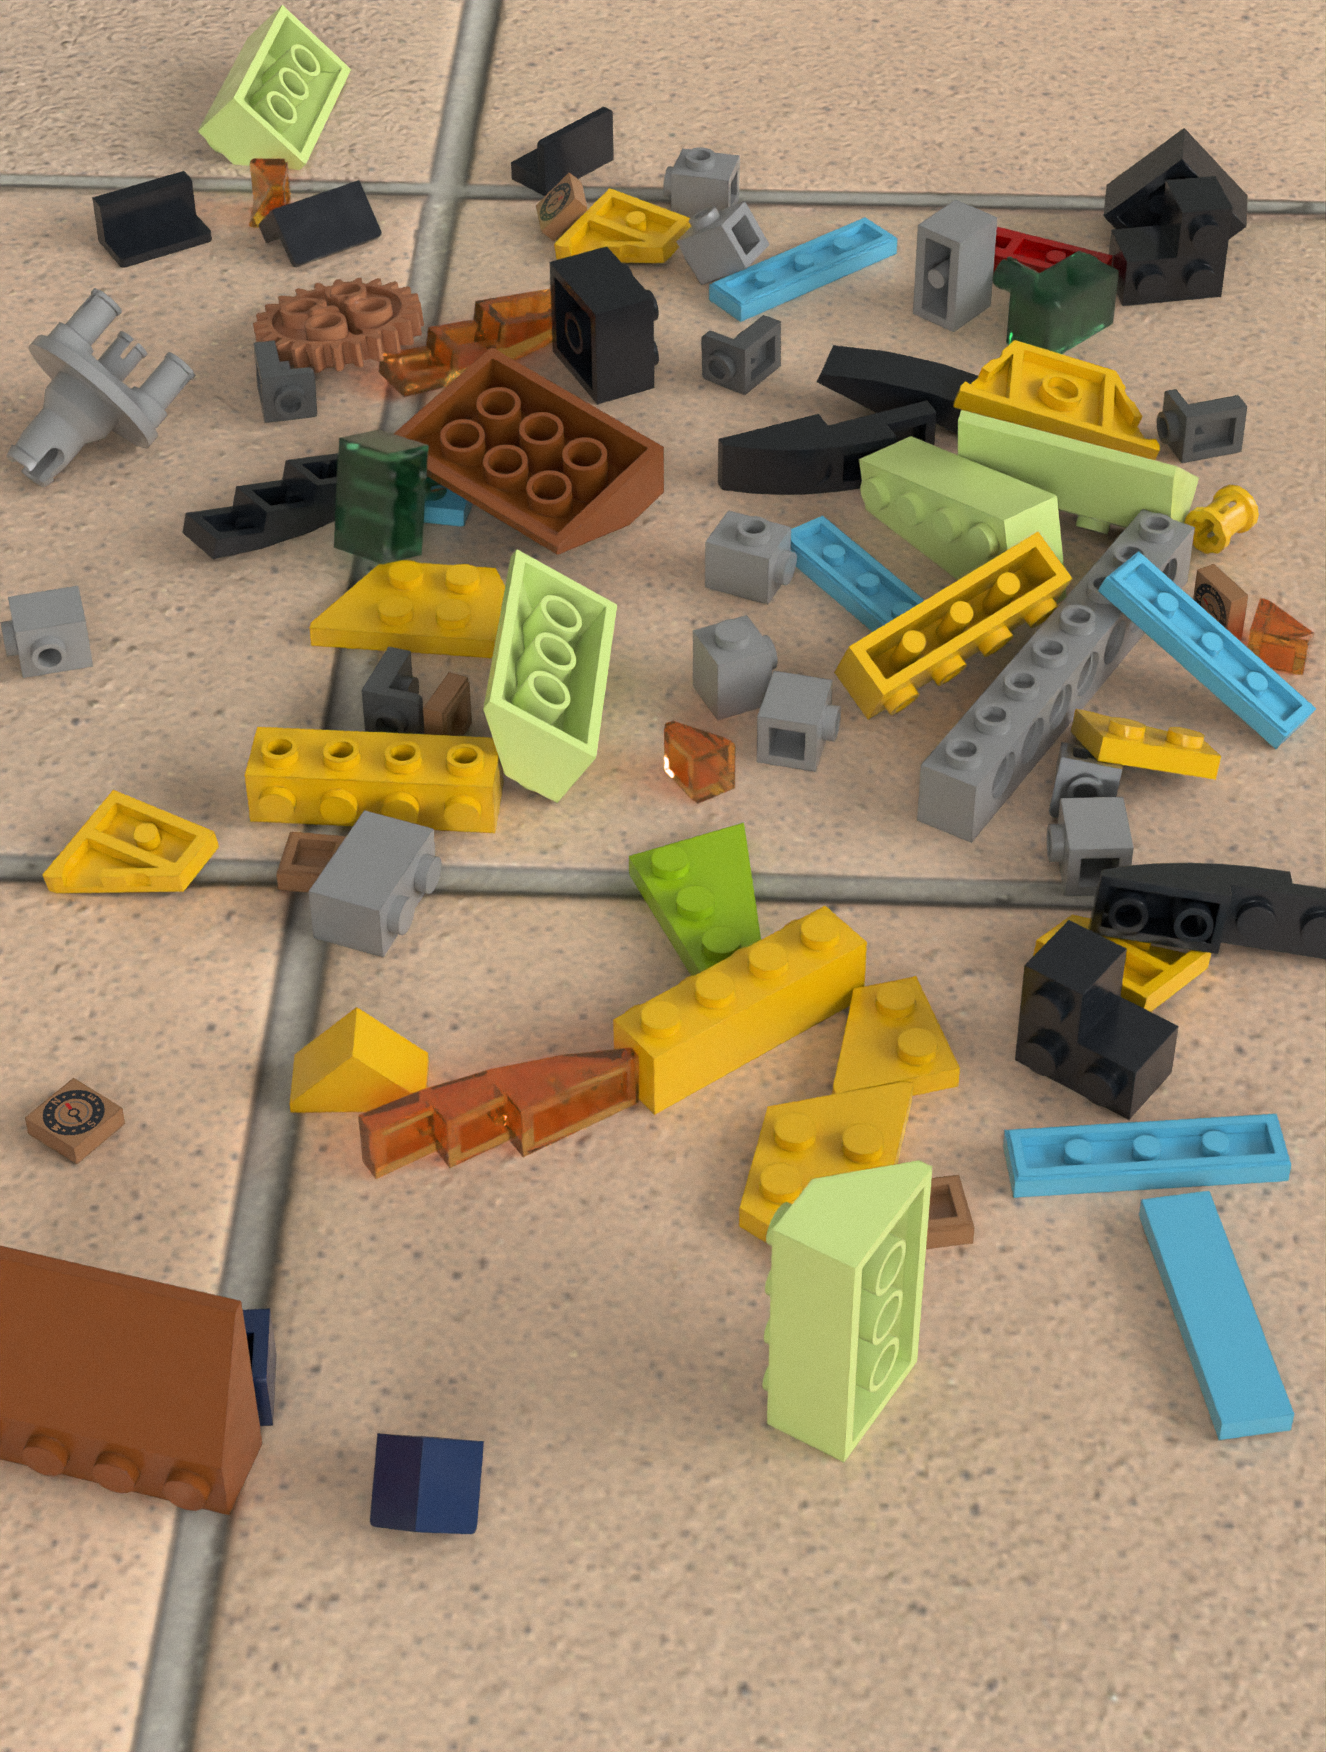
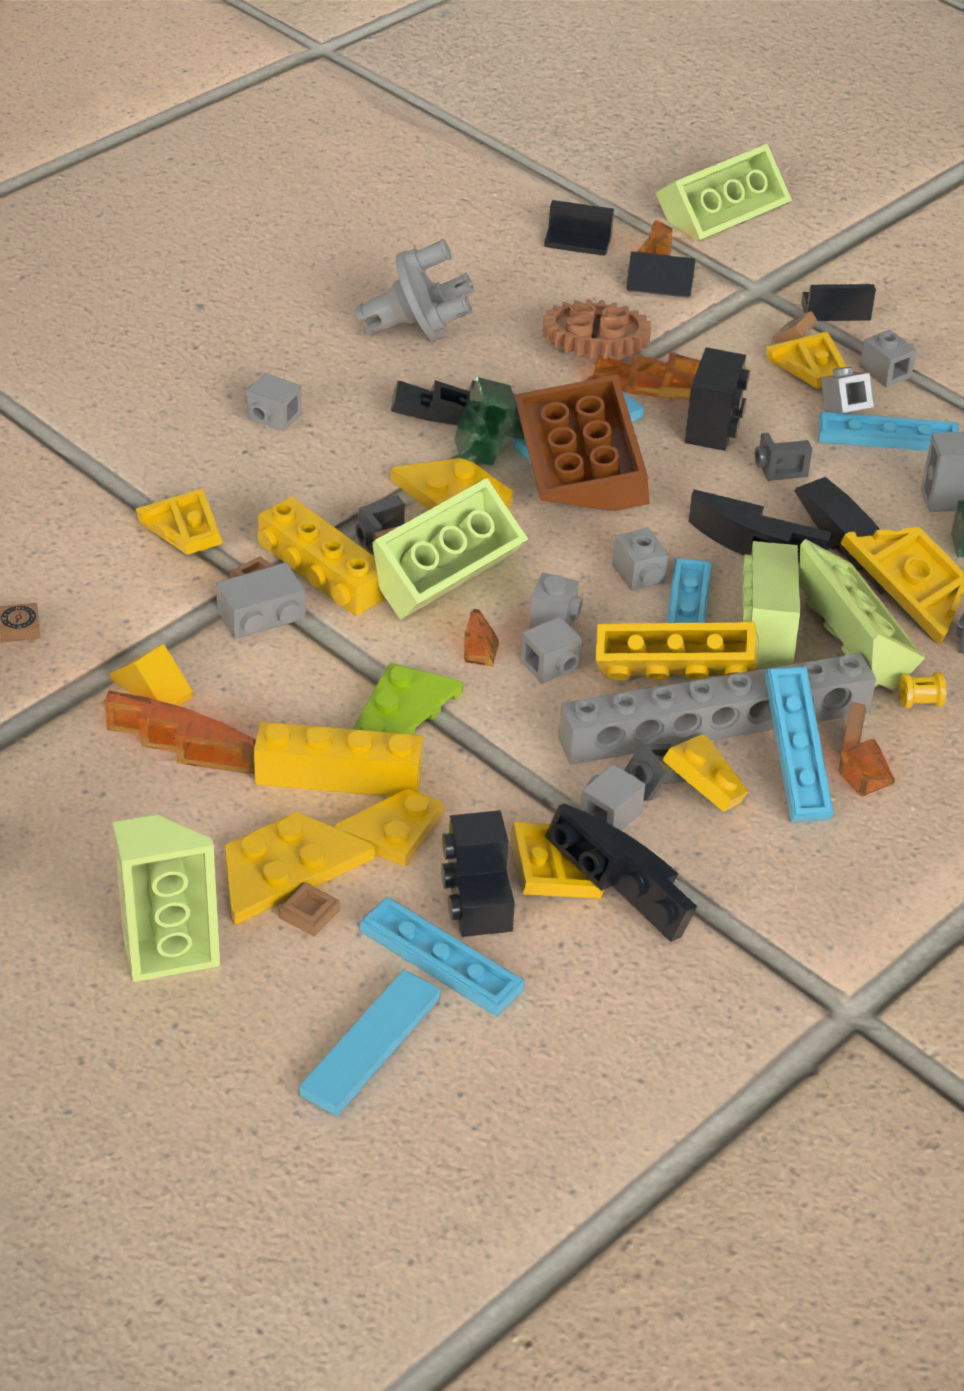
camera: 40 degrees right, 0 degrees up
(283, 391) = (528, 343): dark grey bracket -> none

